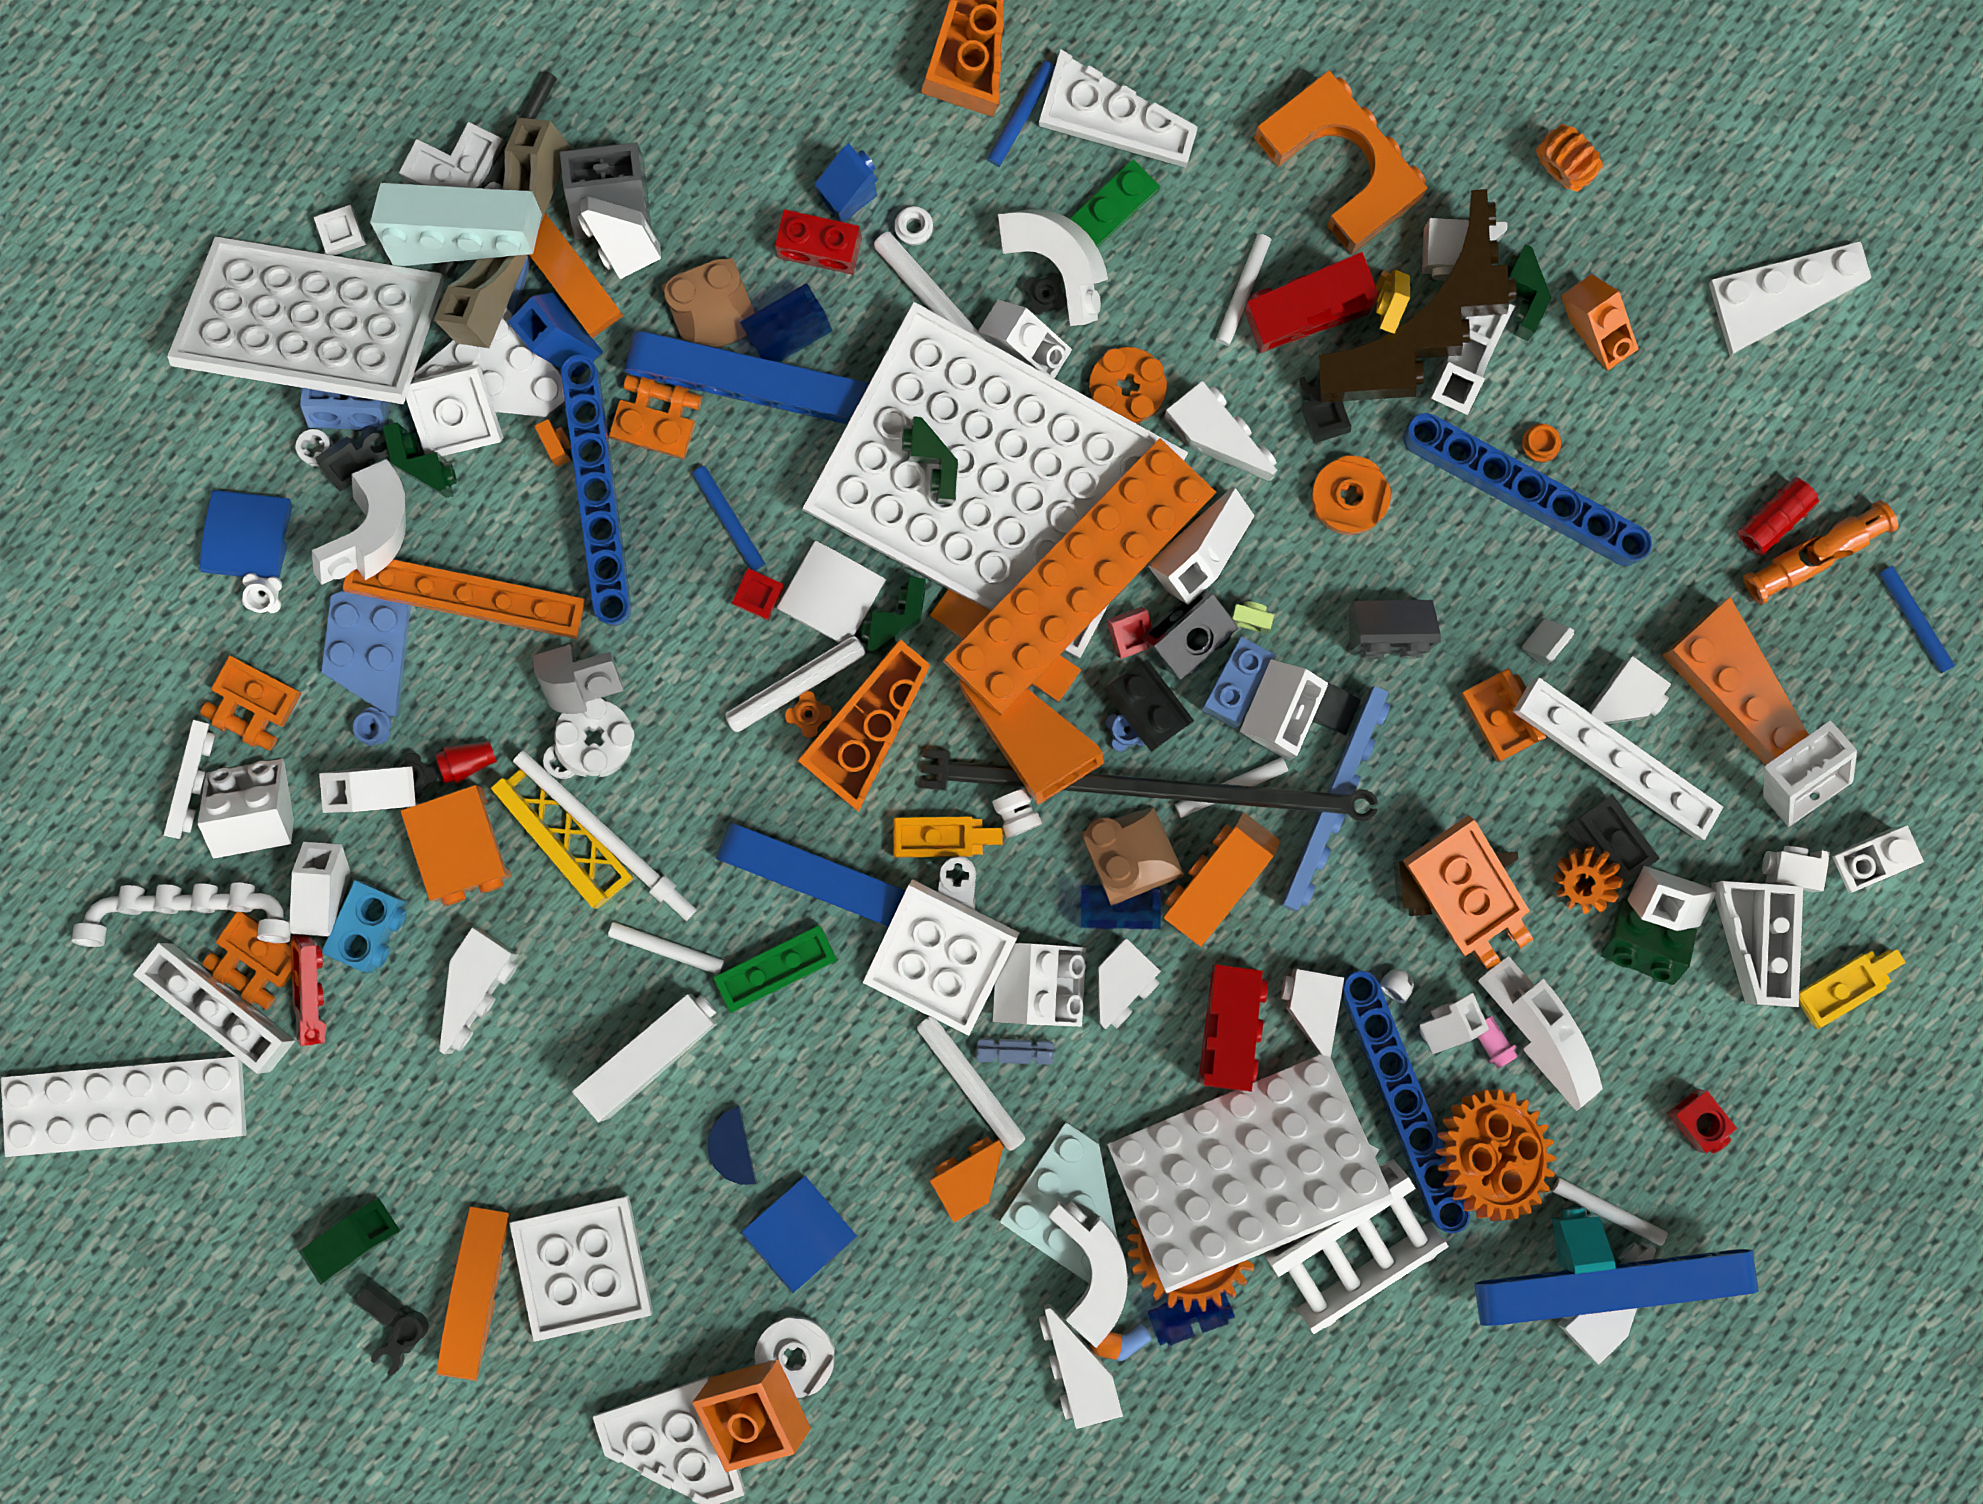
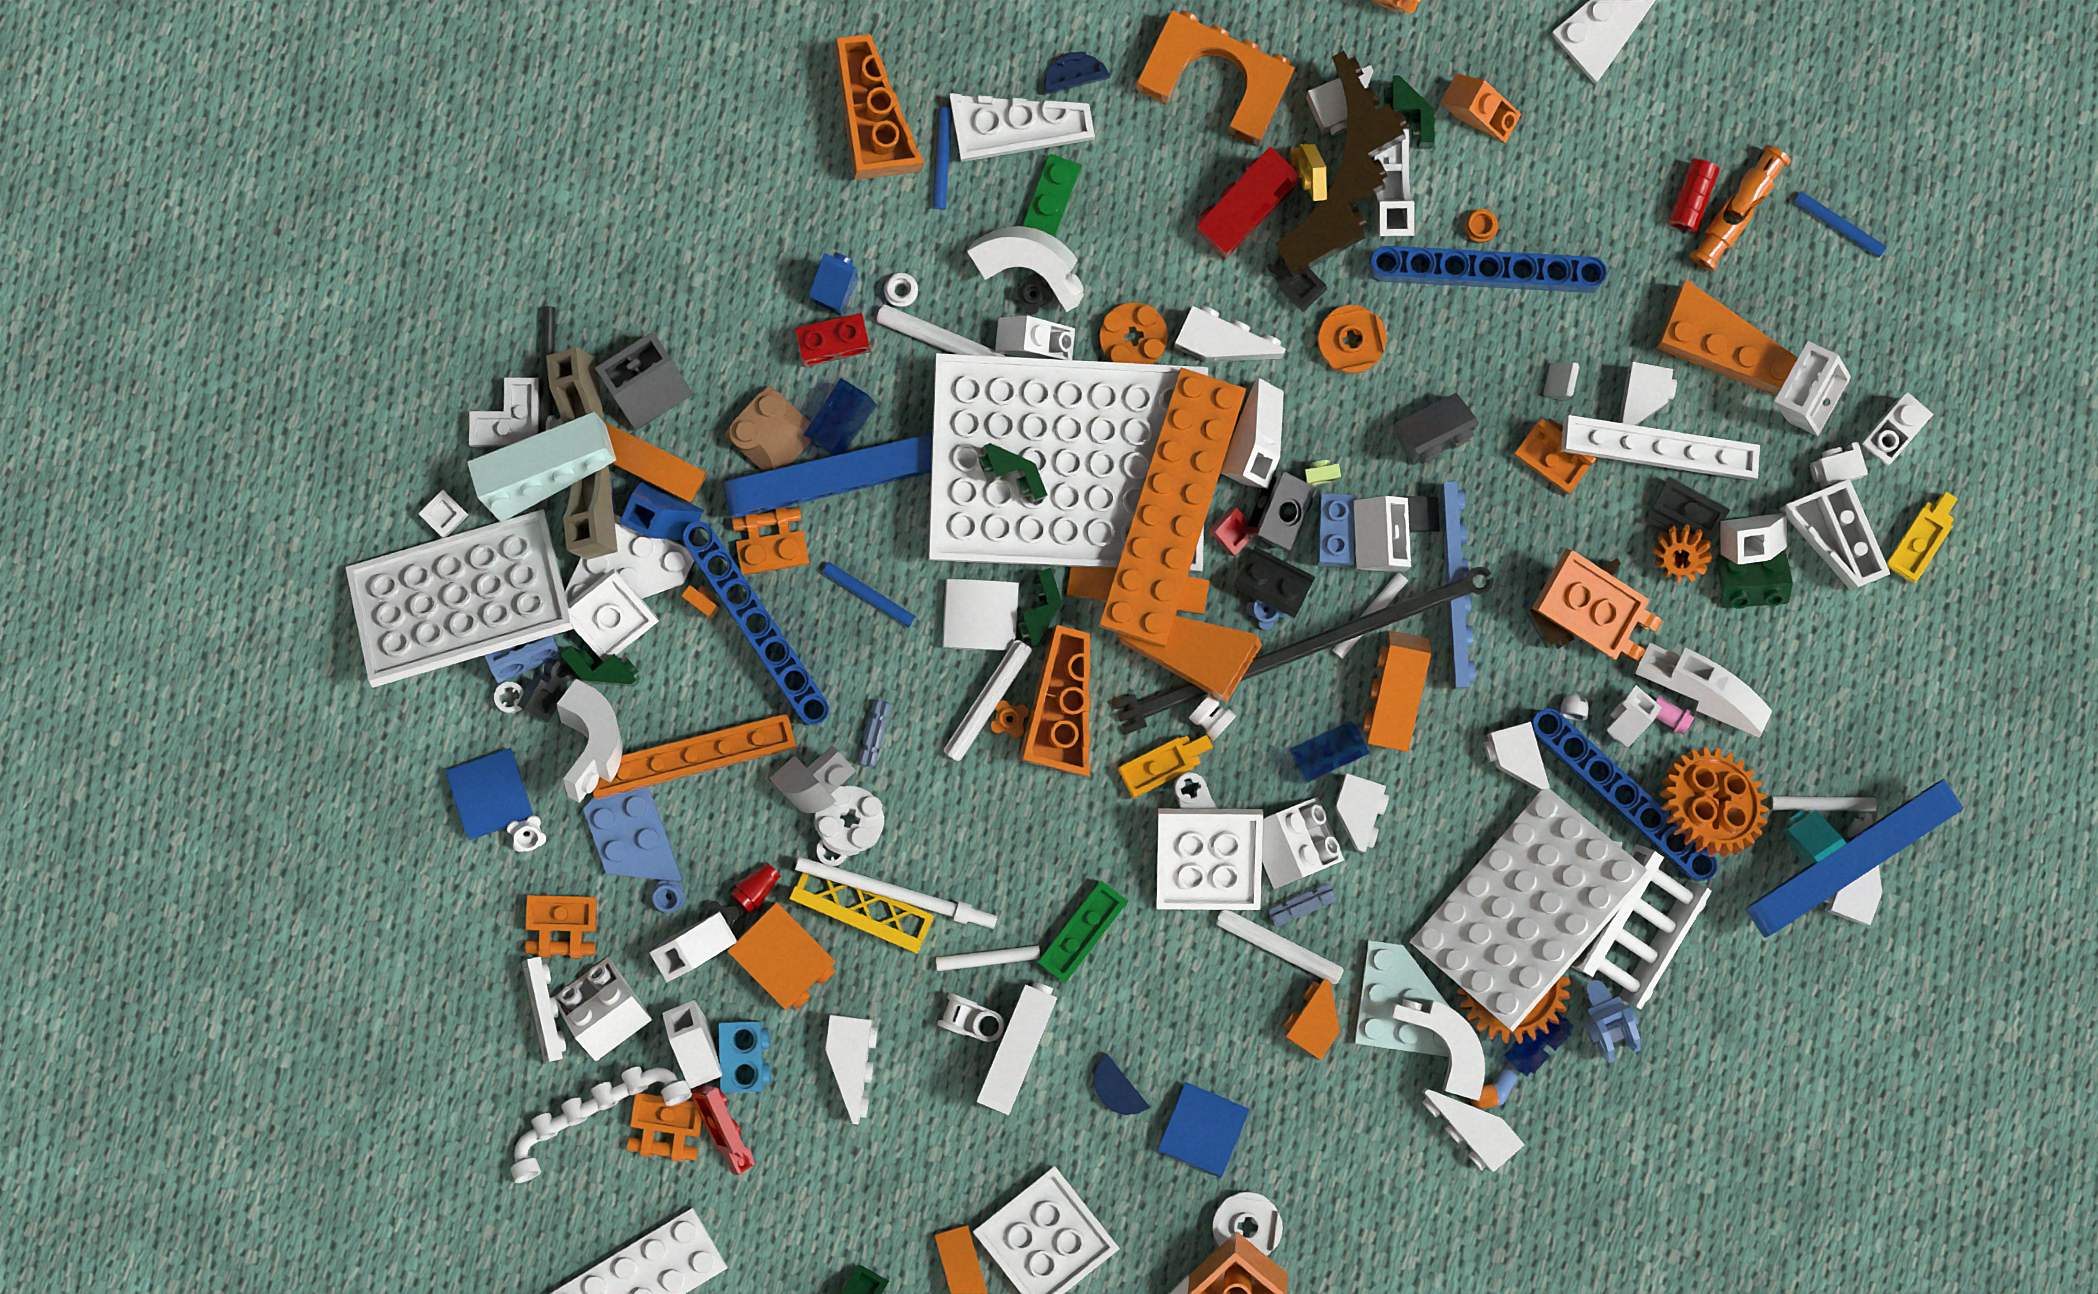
camera: 30 degrees left, 0 degrees up
(214, 1008) = (656, 1177): white brick -> none
(612, 997) = (969, 1018): none -> white piece
(622, 233) = (675, 409): white slope -> none
(664, 662) = (874, 733): none -> sand blue axle
(758, 594) = (922, 643): red plate -> none
(810, 874) = (1074, 844): blue beam -> none
(1131, 854) = (1317, 706): medium nougat slope -> none
(1198, 88) = (1073, 71): none -> dark blue tile
(1232, 1028) = (1462, 803): red wedge -> none
(1243, 289) = (1187, 215): white bar -> none
(1275, 1329) = (1609, 1021): none -> medium blue hinge
(1686, 1115) = (1846, 698): red brick -> none

